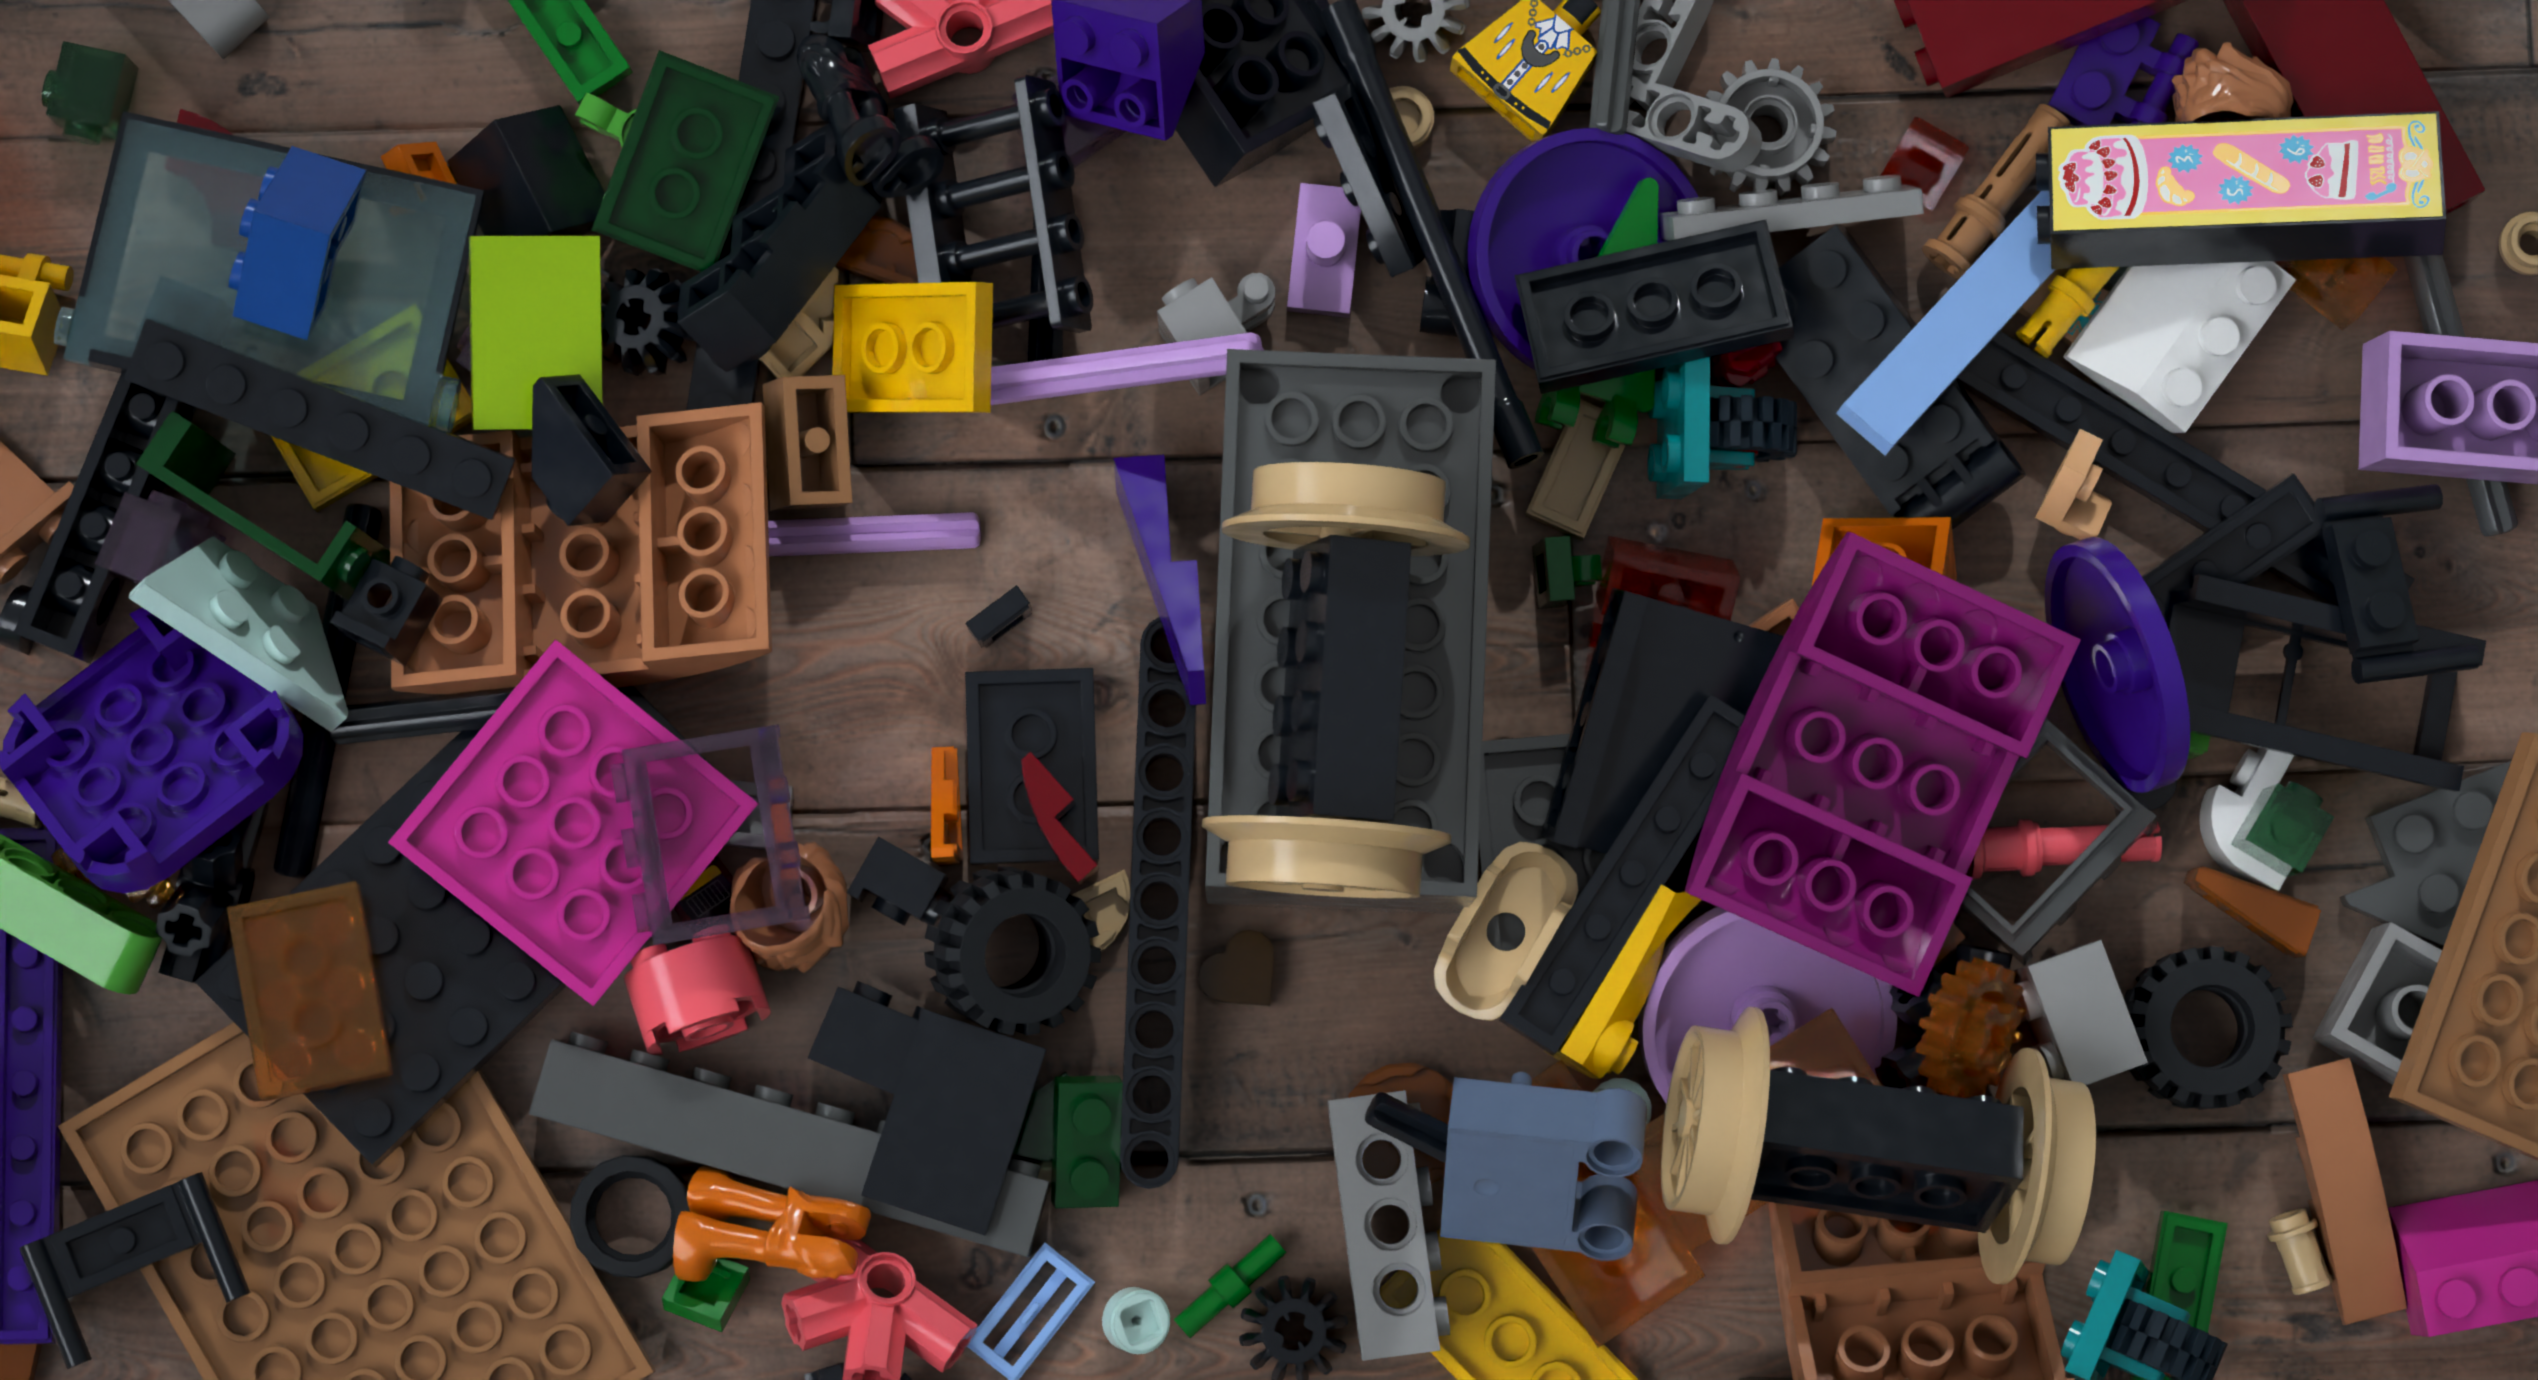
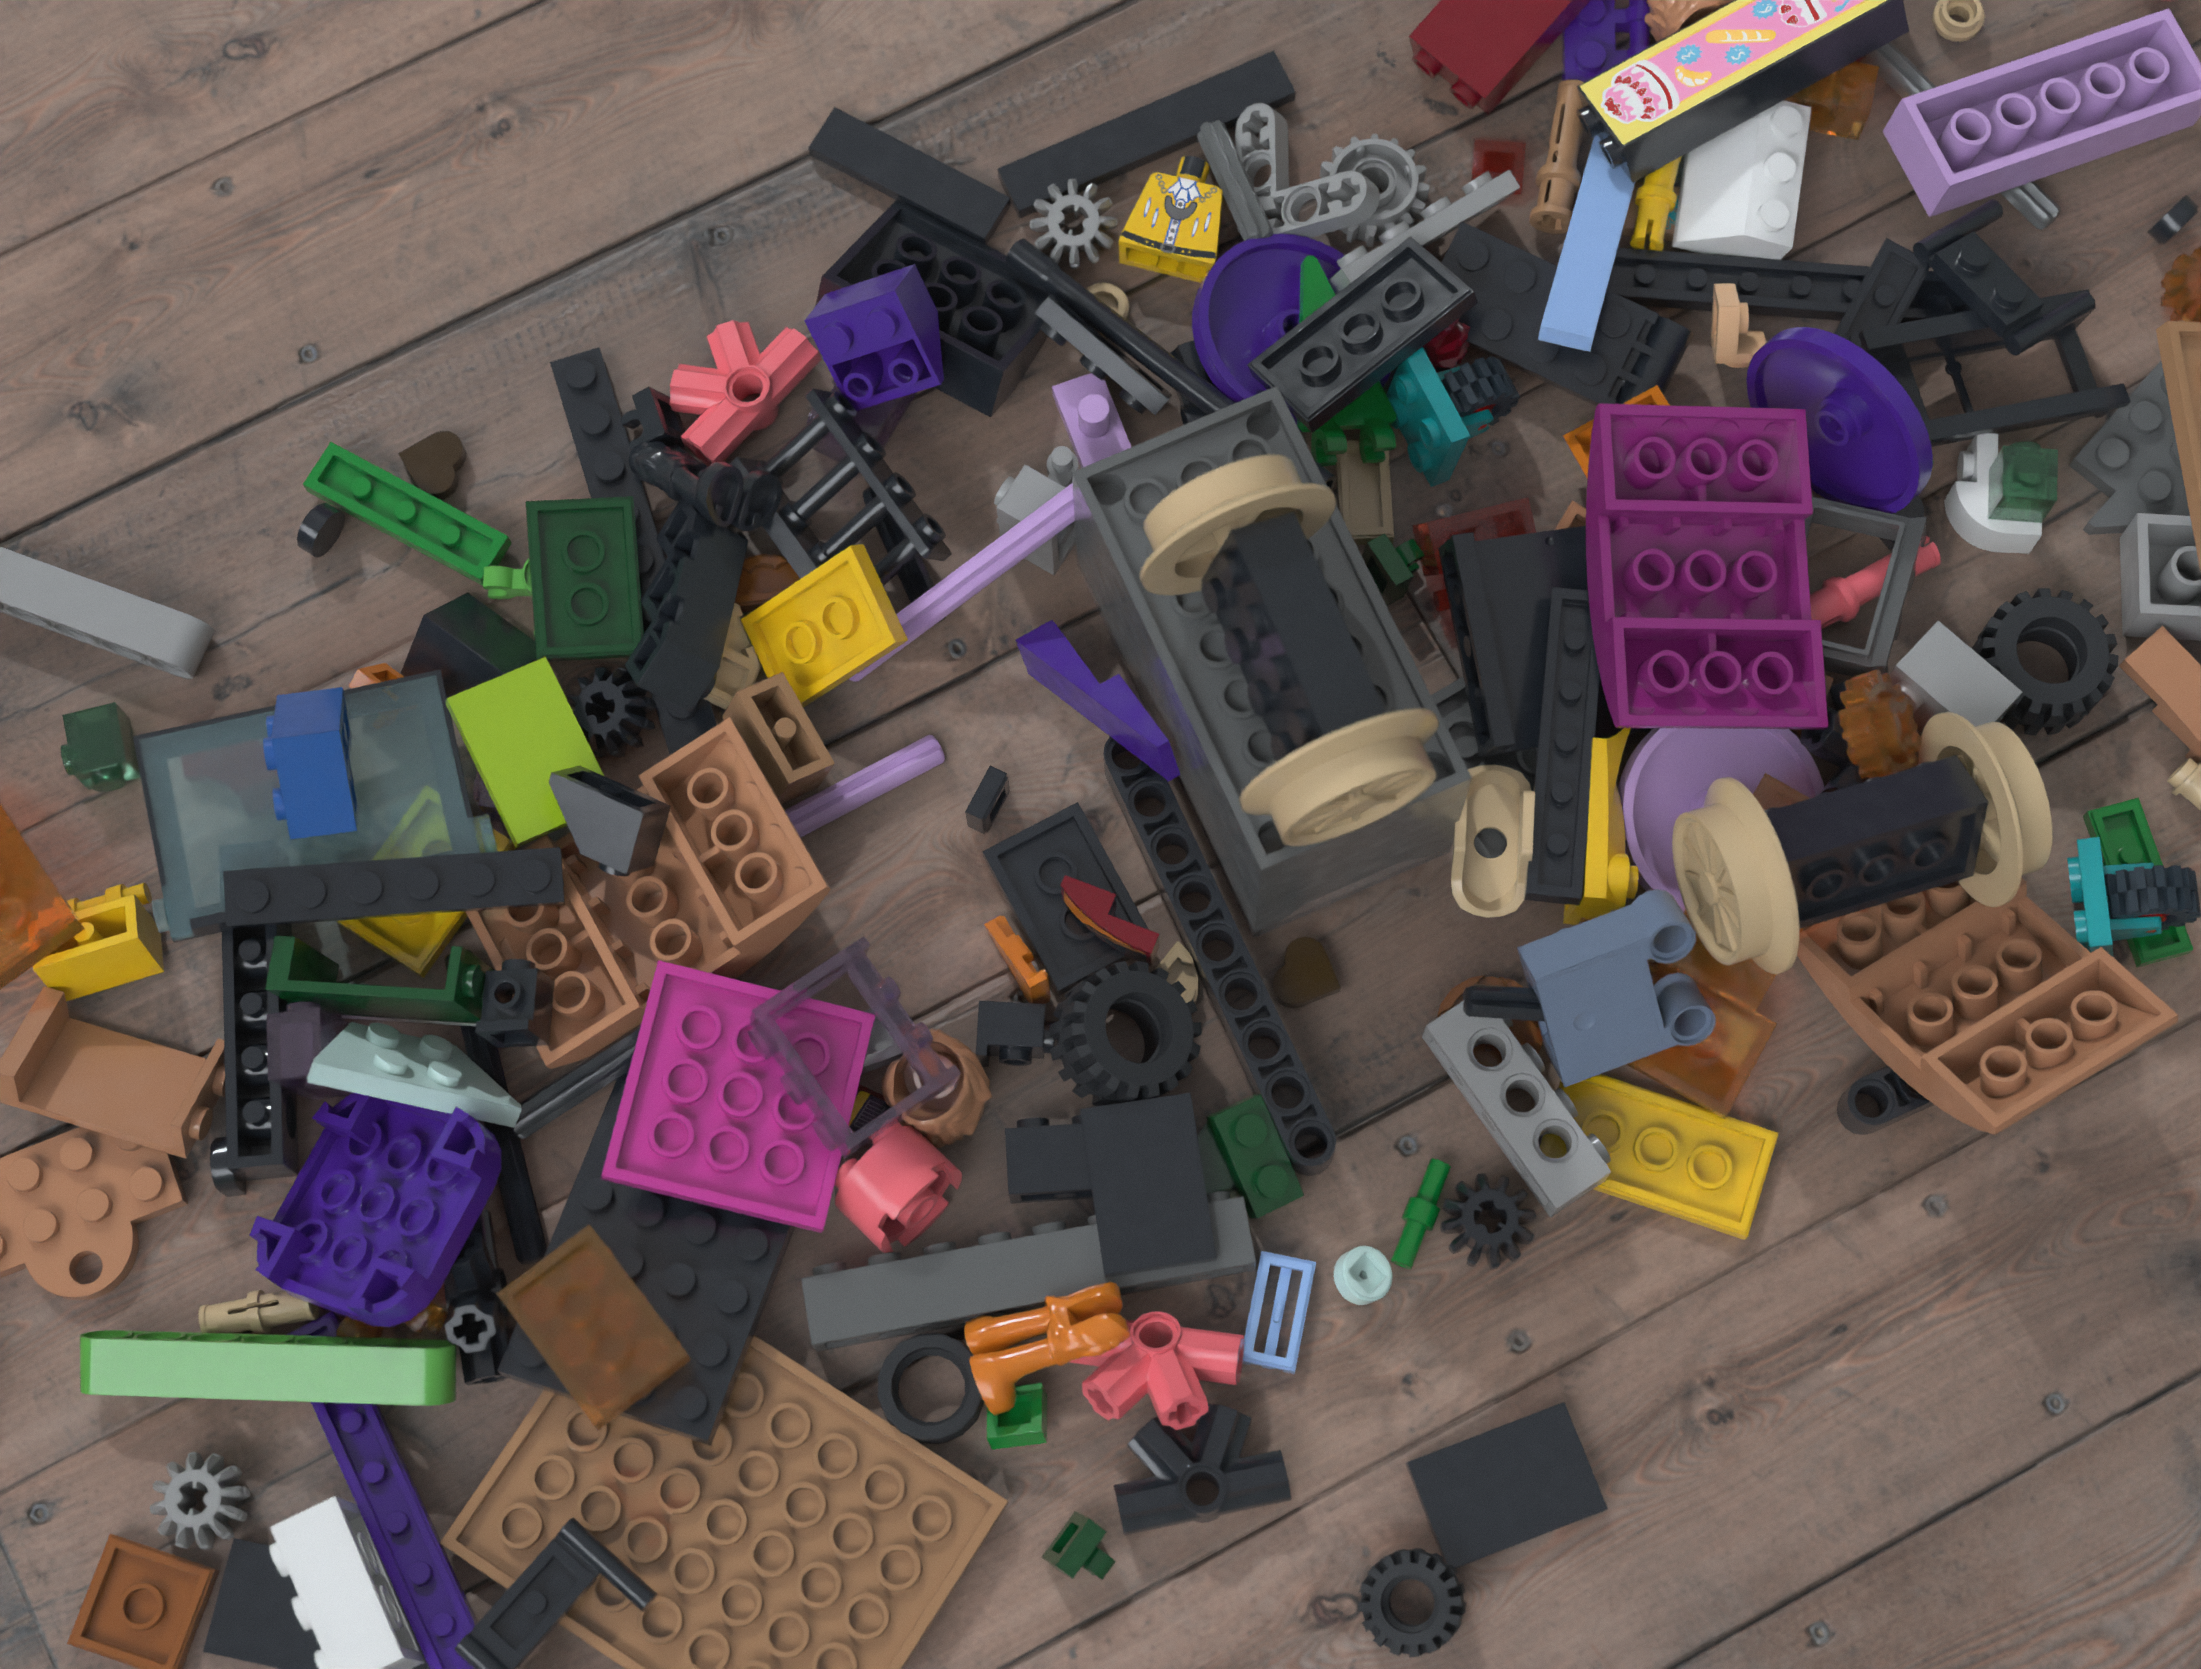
camera: 20 degrees left, 10 degrees down
(2269, 914) = (2038, 560): dark orange slope -> none

